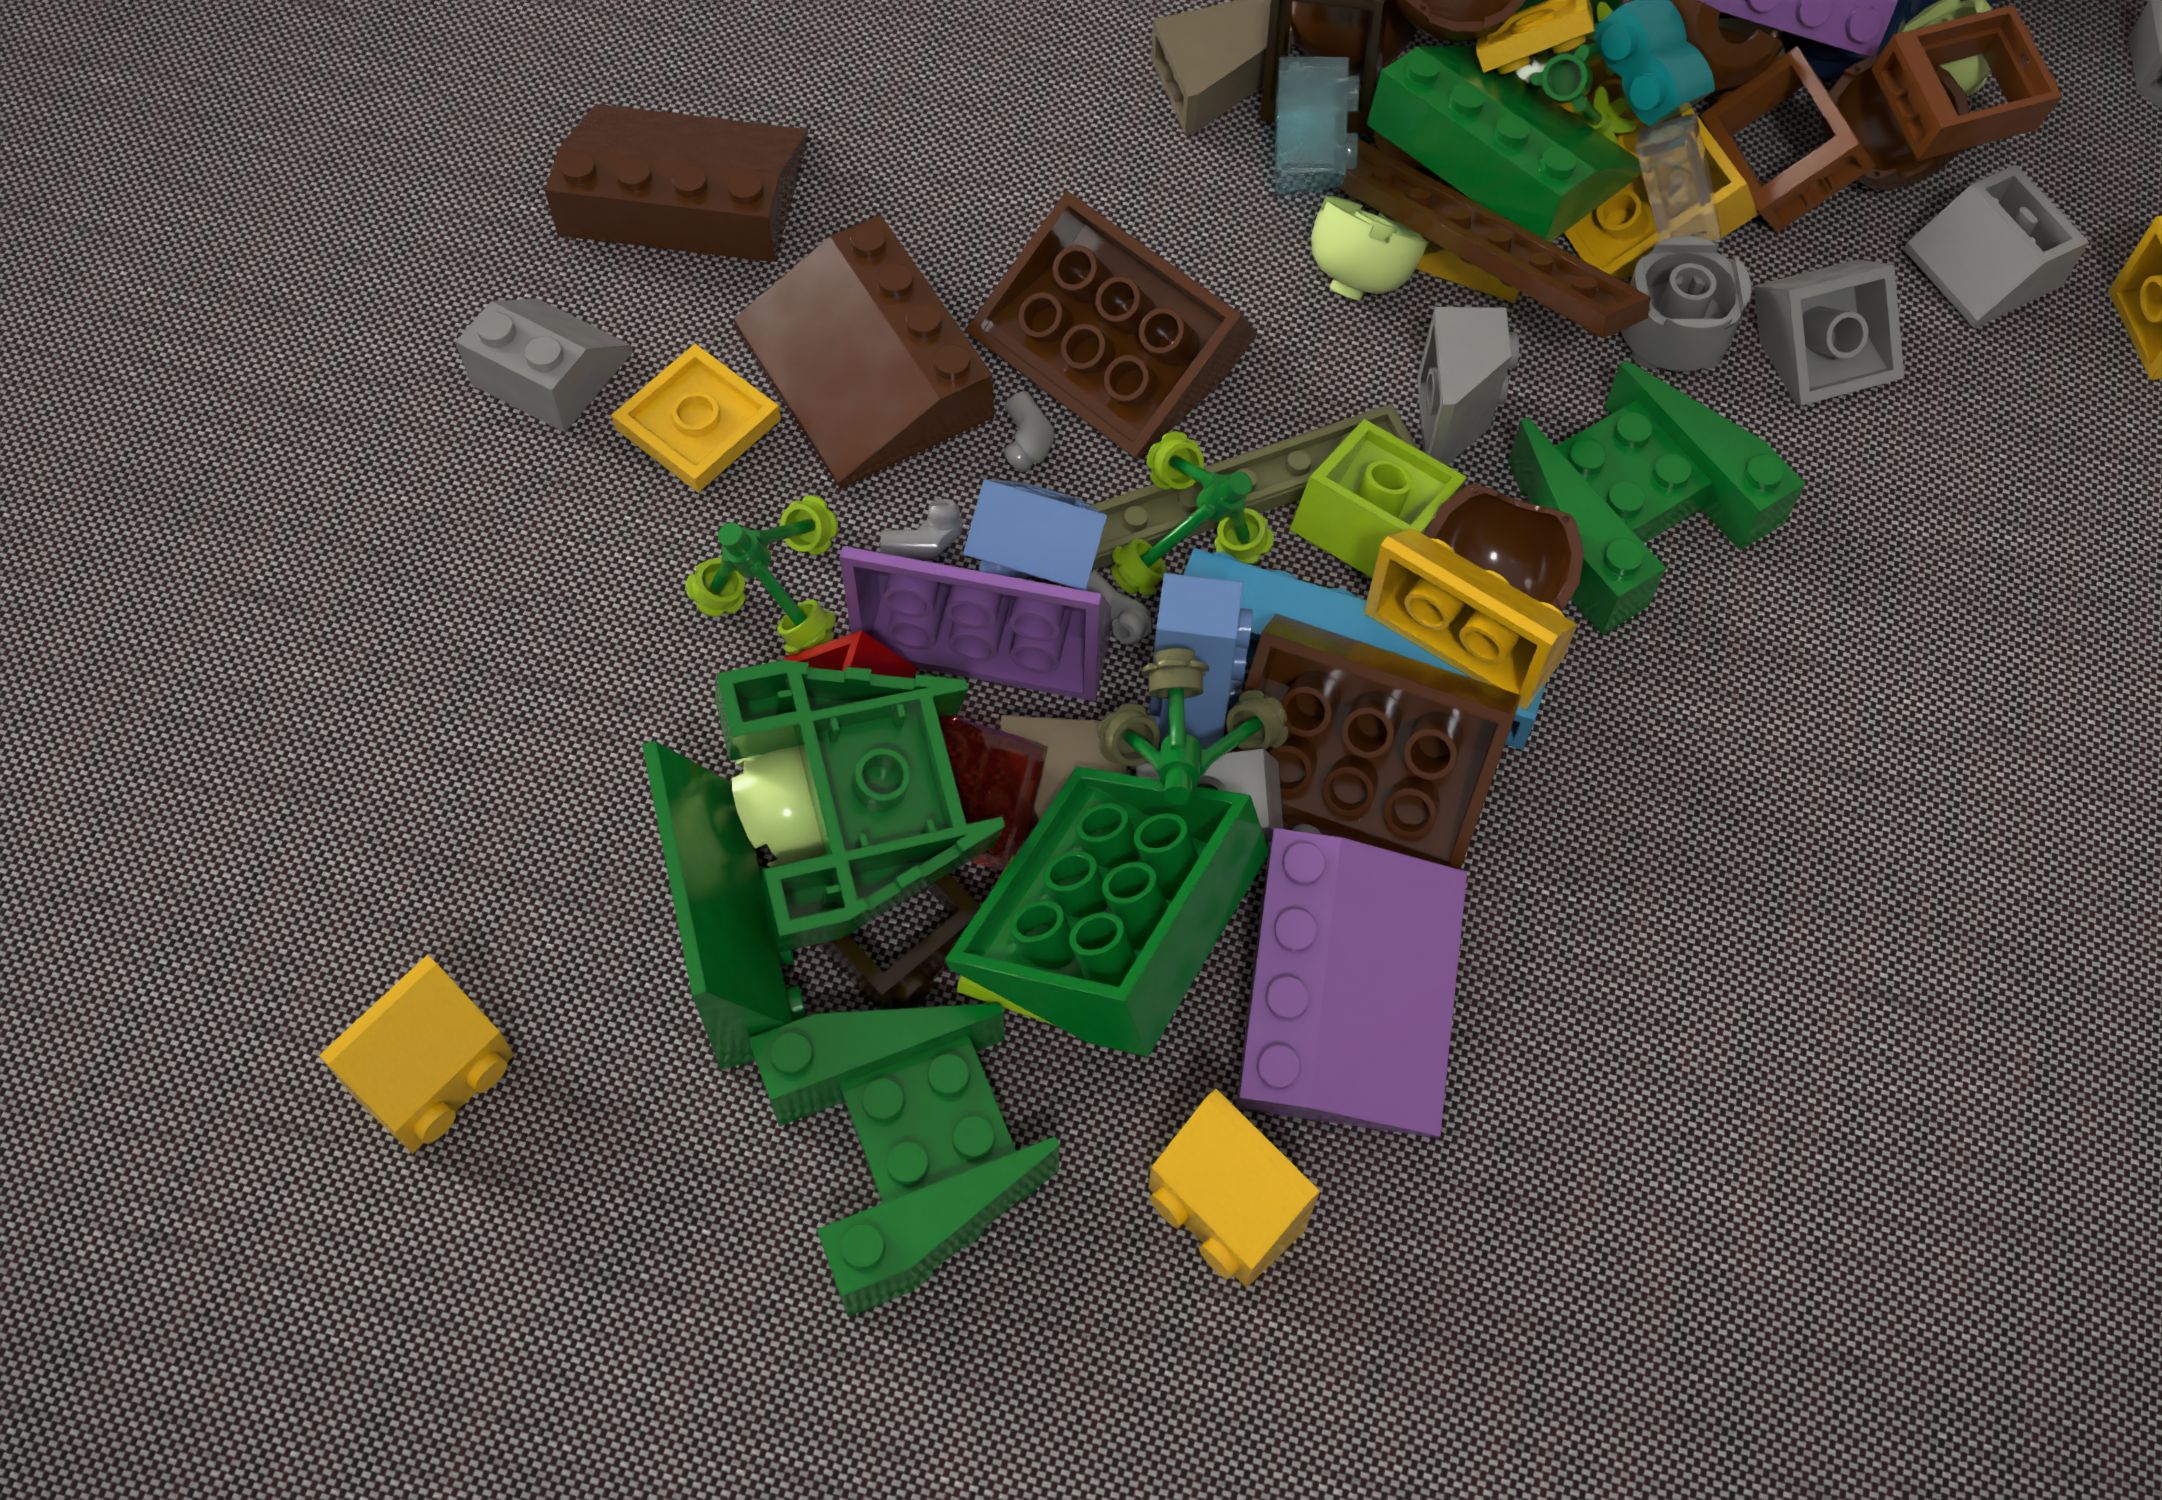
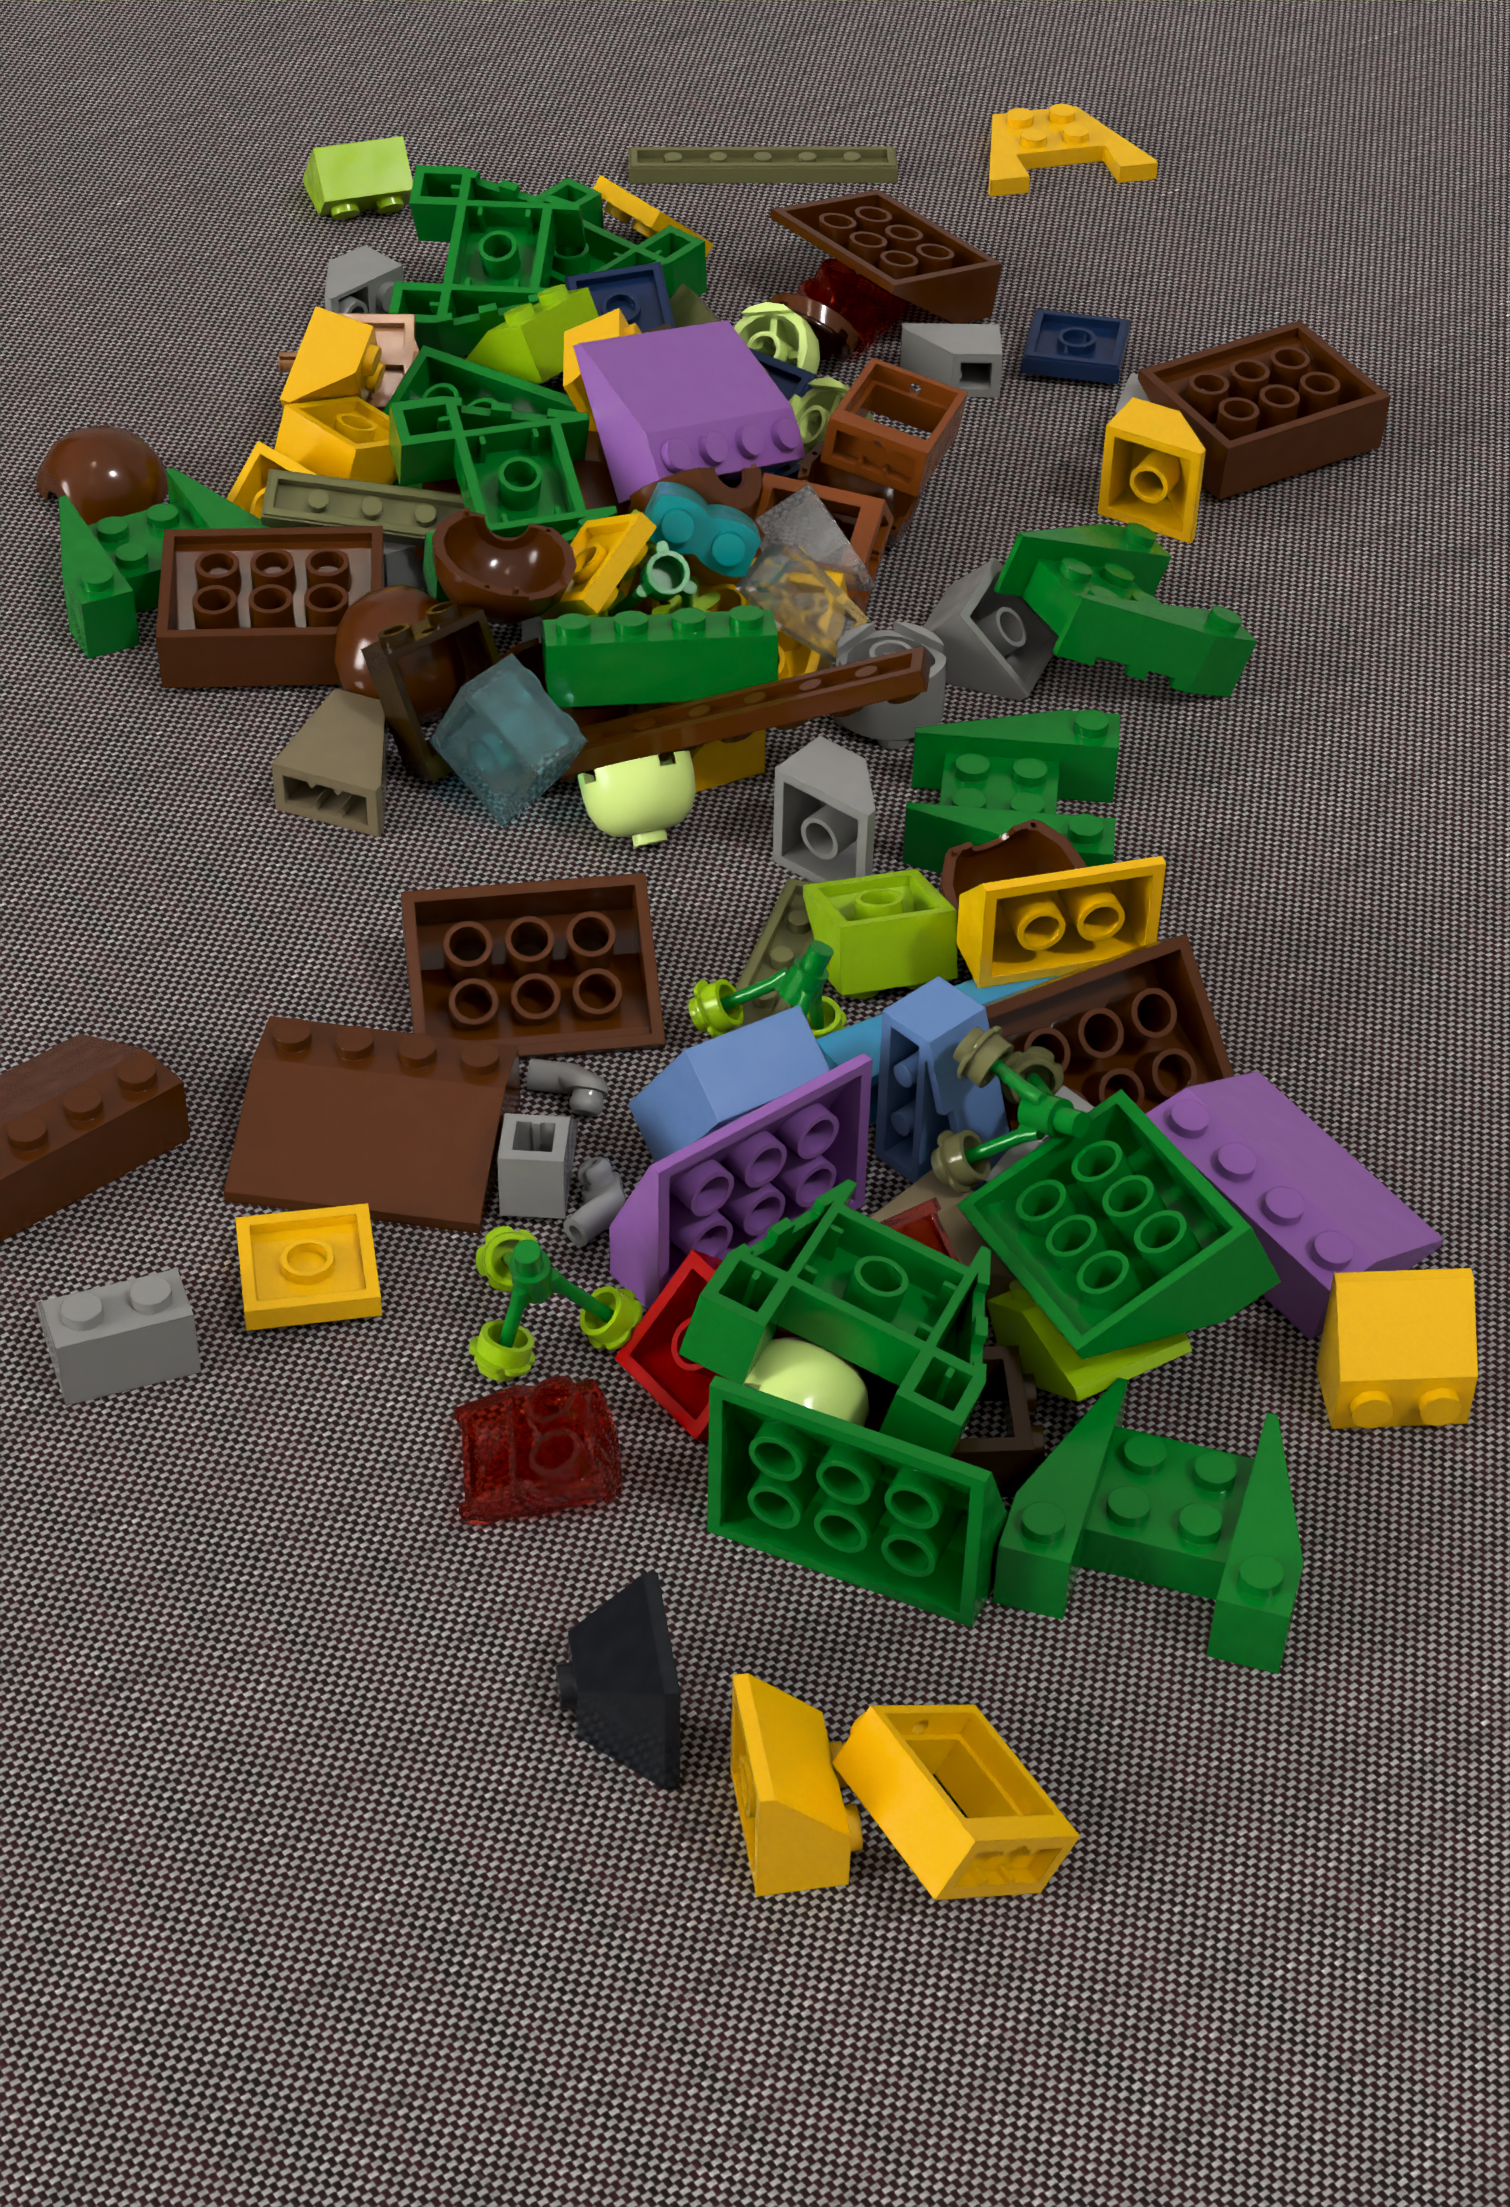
camera: 50 degrees left, 20 degrees down
(444, 894) = (626, 1683): none -> black slope
(455, 1245) = (1012, 1826): none -> yellow window
(634, 681) = (537, 1451): none -> clear red slope
(915, 465) = (536, 1165): none -> light grey slope
(1761, 135) = (807, 523): none -> clear slope
(1932, 382) = (1099, 599): none -> green wedge
(1997, 246) = (1010, 501): light grey slope -> none

